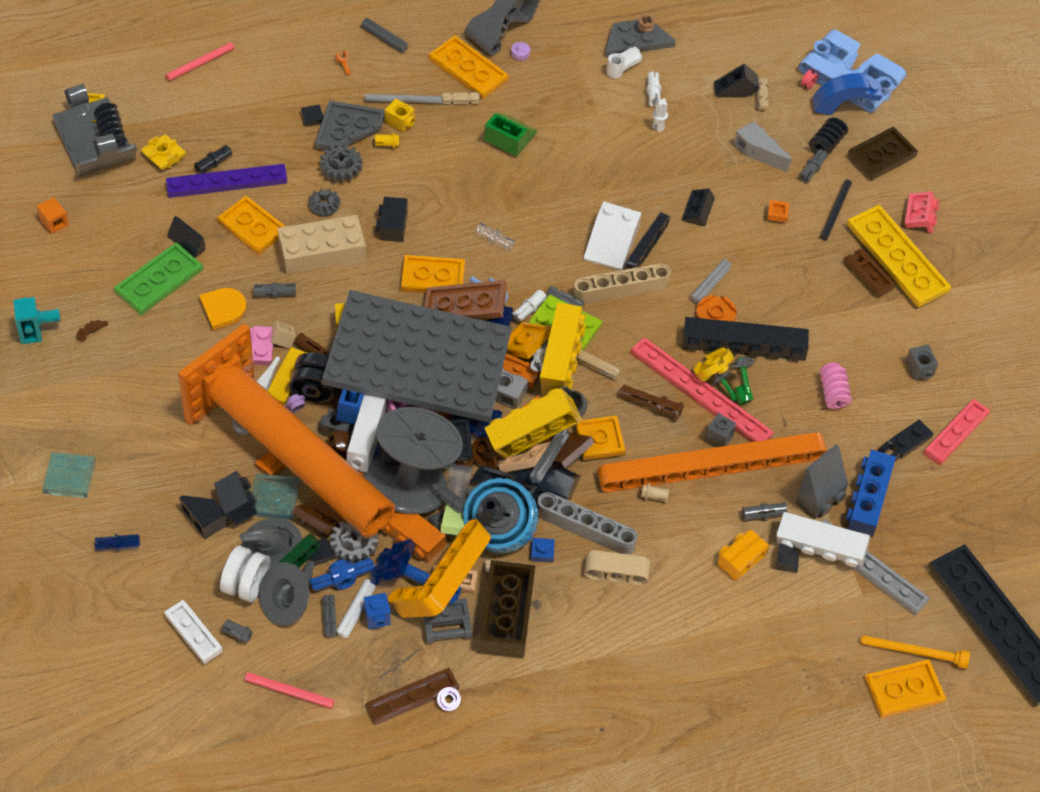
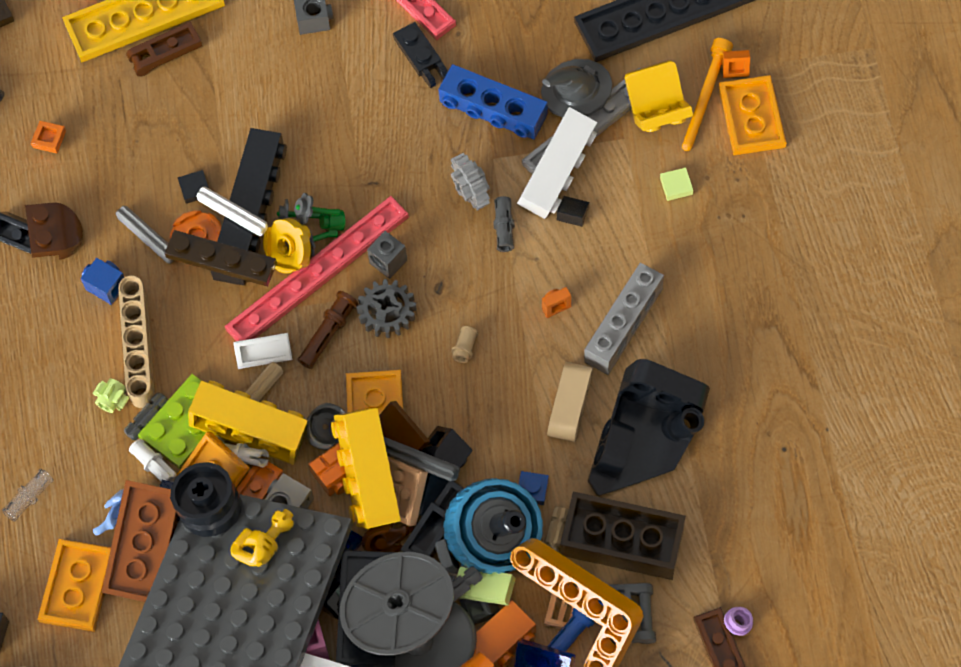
camera: 75 degrees left, 10 degrees up
(459, 358) = (262, 543): none -> yellow piece
(493, 325) = (206, 499): none -> black wheel
(575, 271) = (111, 395): none -> yellowish green gear
(592, 532) = (504, 417): light grey beam -> none
(594, 618) = (647, 426): none -> black panel
(612, 236) = (55, 343): white slope -> none
(628, 362) = (263, 350): none -> white tile
(648, 241) = (72, 300): black beam -> none
(665, 432) = (388, 312): none -> dark grey gear
(668, 254) = (102, 280): none -> blue brick
(693, 321) = (220, 258): none -> dark brown plate
(694, 599) = (623, 318): none -> light grey brick
(700, 222) = (53, 230): none -> reddish brown slope
(701, 551) = (556, 301): none -> orange plate
(711, 462) = (428, 275): orange beam -> none
(733, 323) = (232, 211): none -> white axle
(742, 554) = (564, 256): light orange brick -> none
(756, 306) = (191, 185): none -> black tile
(790, 478) = (470, 181): none -> light grey gear
(823, 483) = (485, 149): dark grey slope -> none
(826, 633) = (676, 184): none -> yellowish green tile
(835, 386) = (334, 114): bright pink piece -> none
(836, 209) = (56, 70): black bar -> none
(898, 550) = (577, 85): none -> dark grey piece
(900, 608) = (657, 96): none -> yellow bracket
(949, 669) = (736, 64): none -> orange plate

